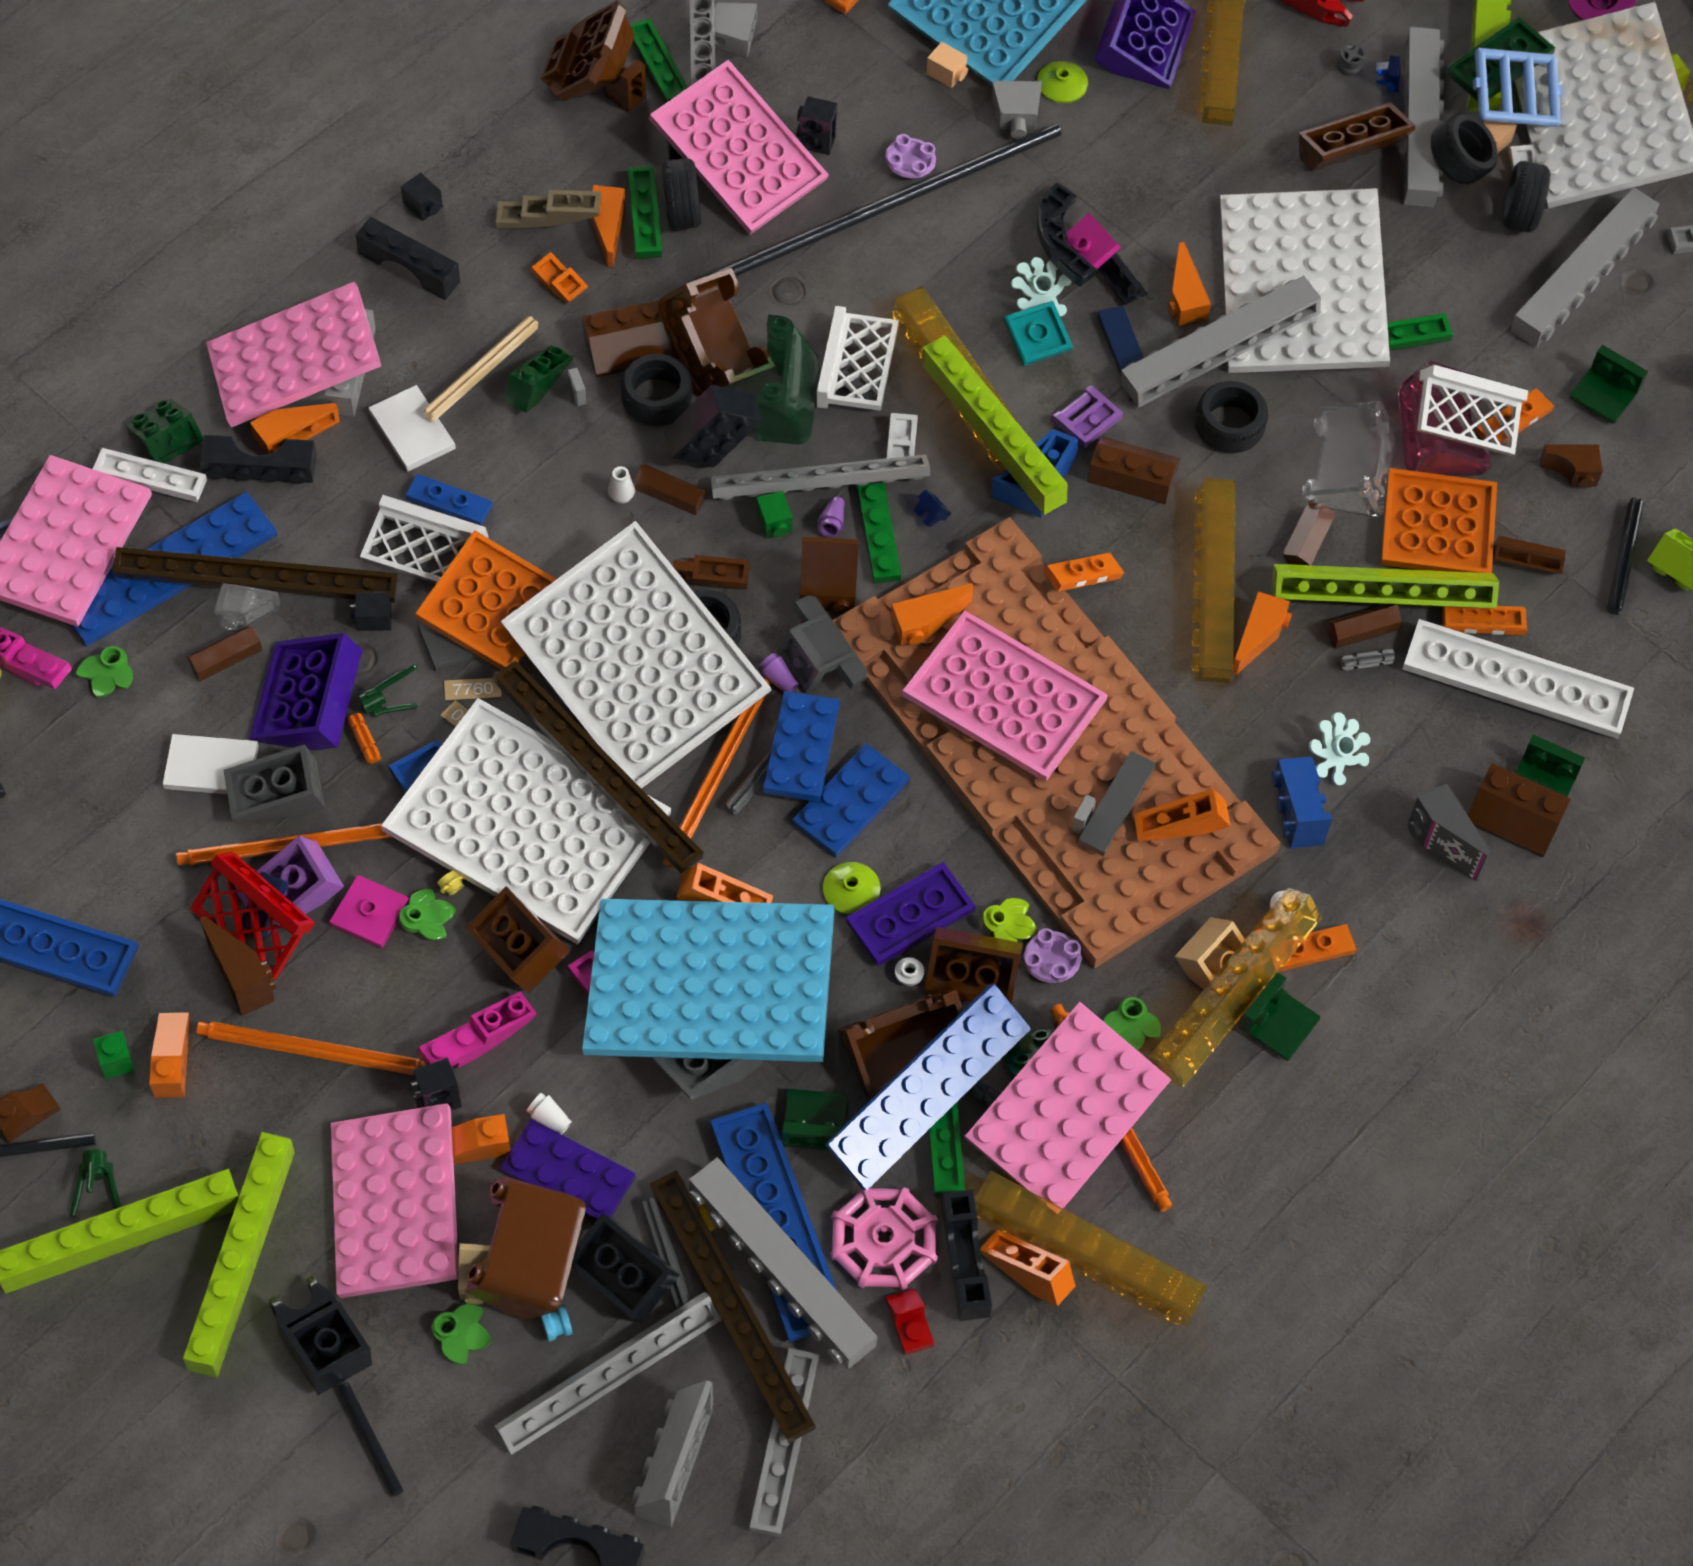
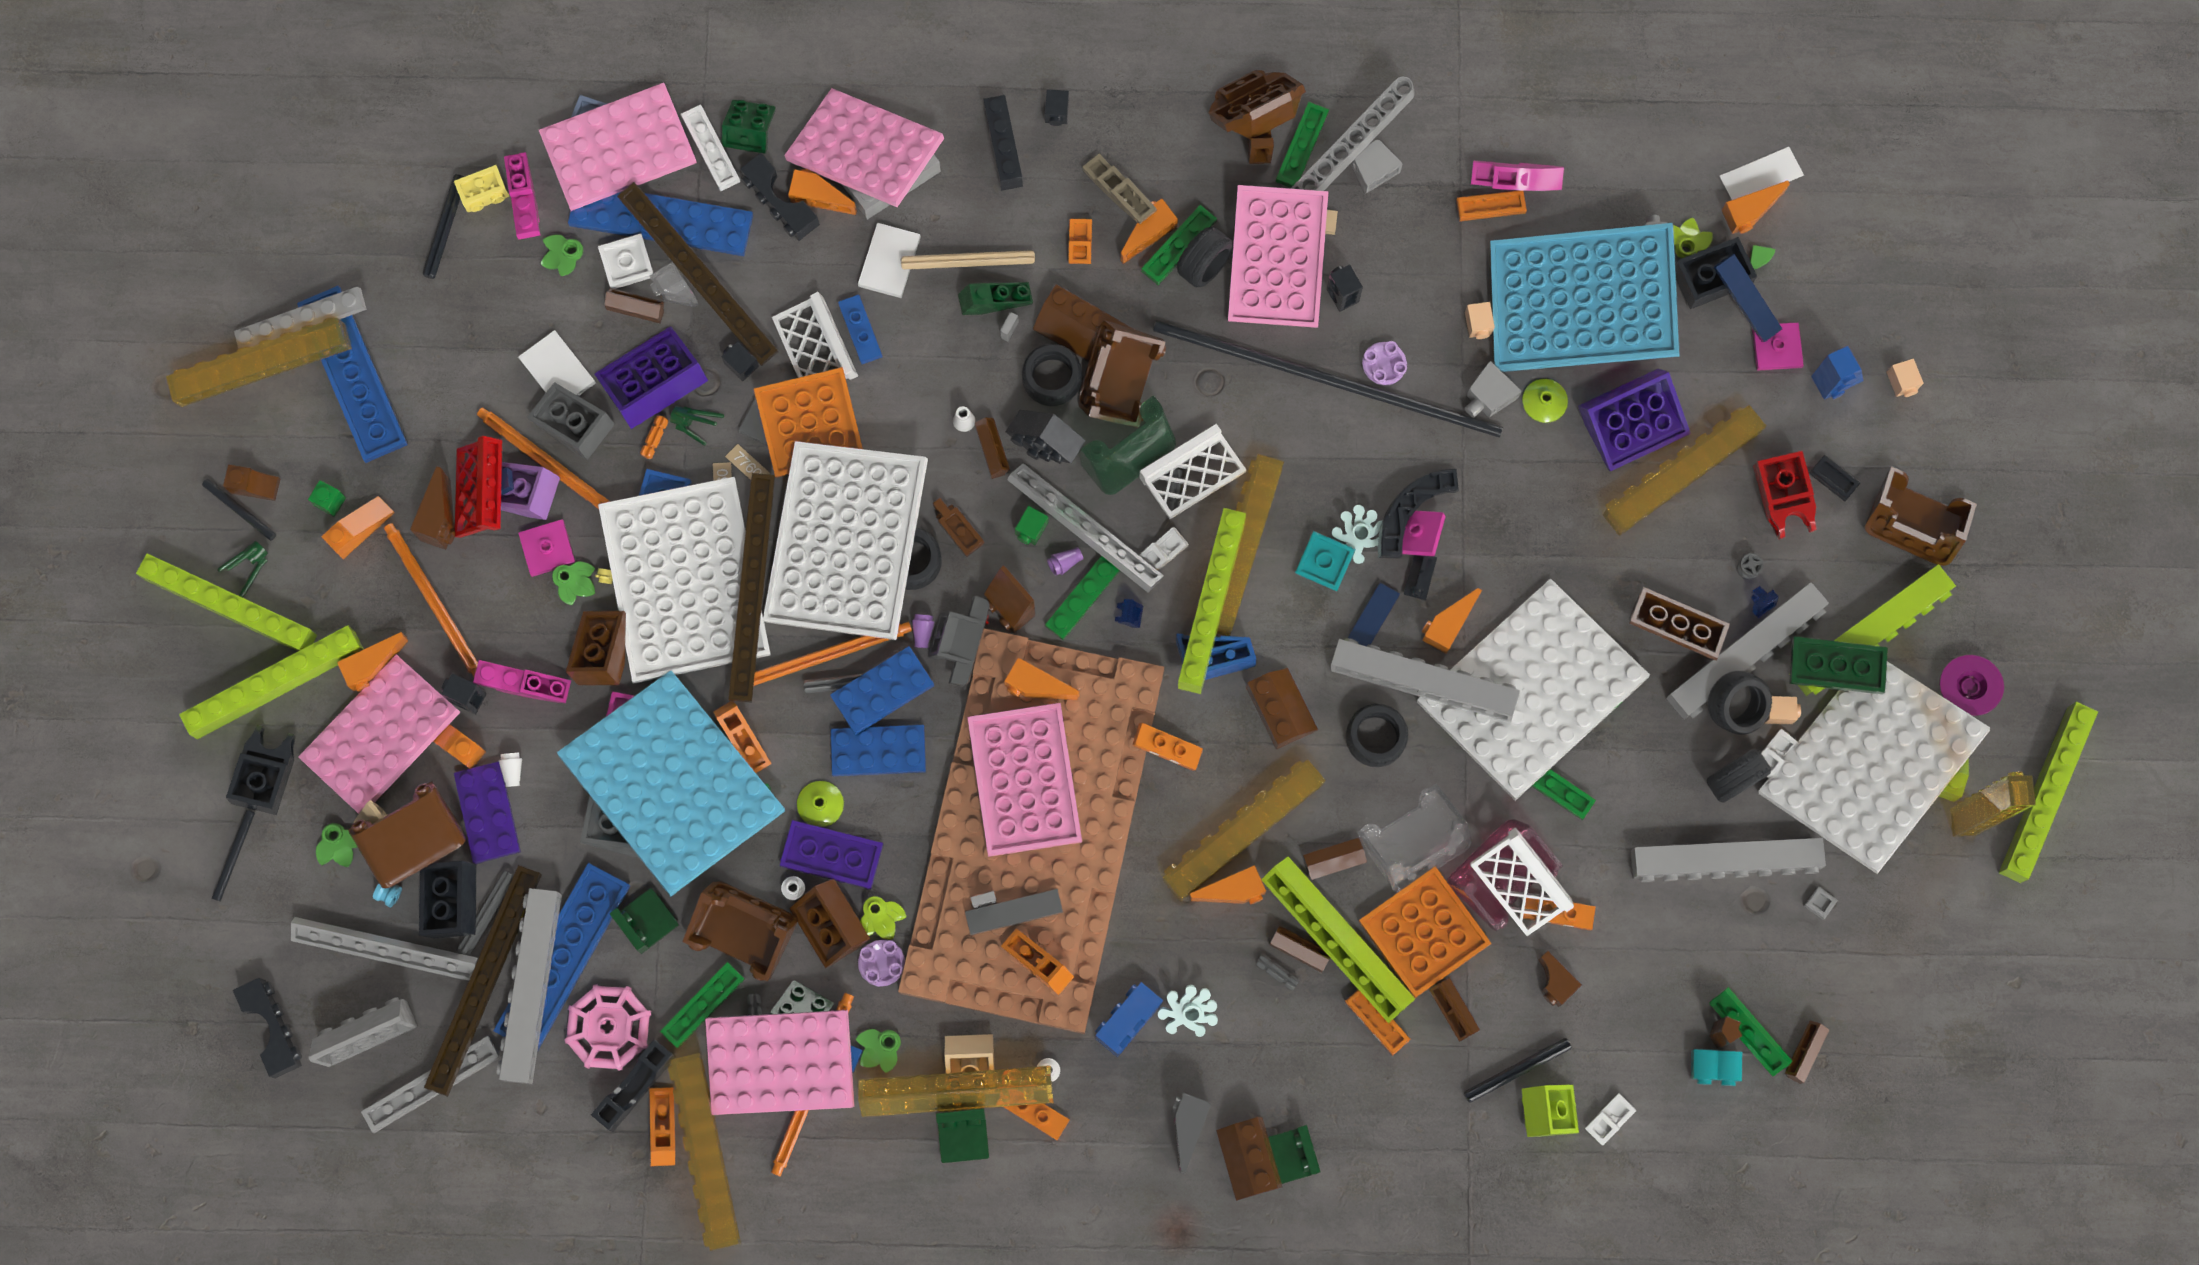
camera: 50 degrees right, 15 degrees up
(175, 625) = (626, 261): none -> white plate
(312, 1159) = (366, 664): none -> orange slope
(910, 1321) = (569, 1087): red slope -> none
(927, 1087) = (717, 969): plate -> none
(1090, 423) = (1291, 653): medium lavender plate -> none
(1507, 115) = (1835, 668): light blue bar -> none
(1518, 678) = (1352, 1079): white plate -> none
(1609, 385) = (1640, 952): dark green bracket -> none

